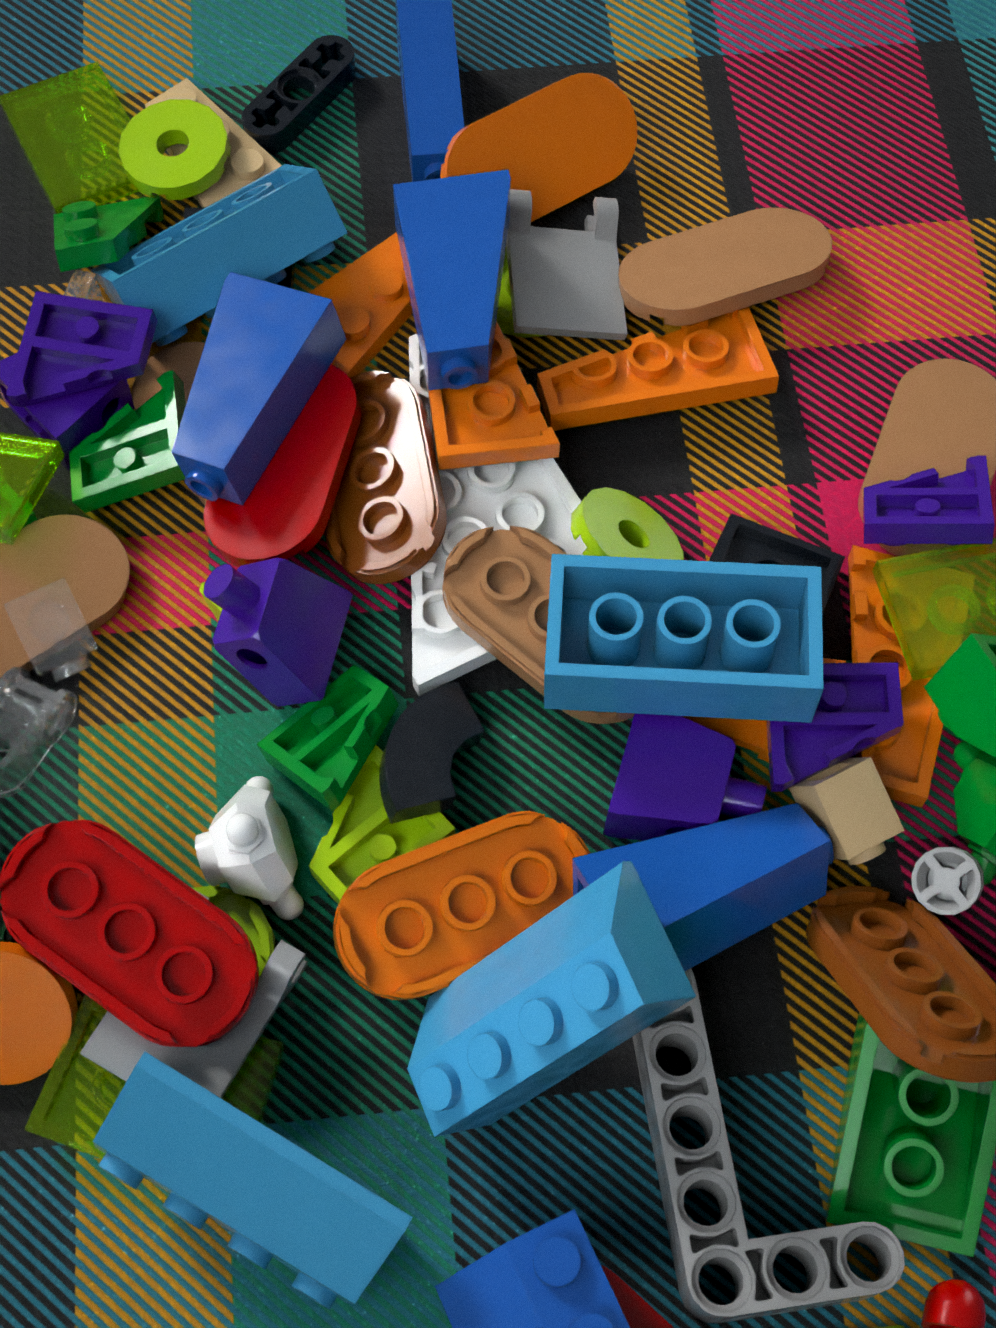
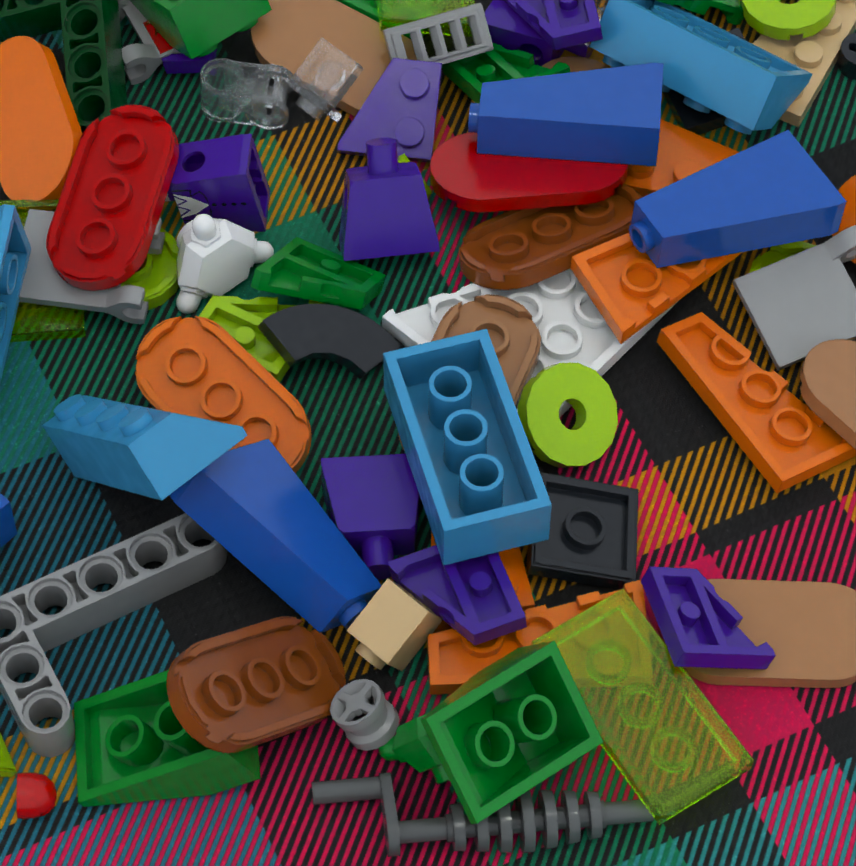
camera: 70 degrees right, 5 degrees down
(76, 447) = (478, 28): none -> light grey slope
(135, 571) = (399, 108): none -> dark purple wing
(154, 795) = (221, 180): none -> dark purple torso

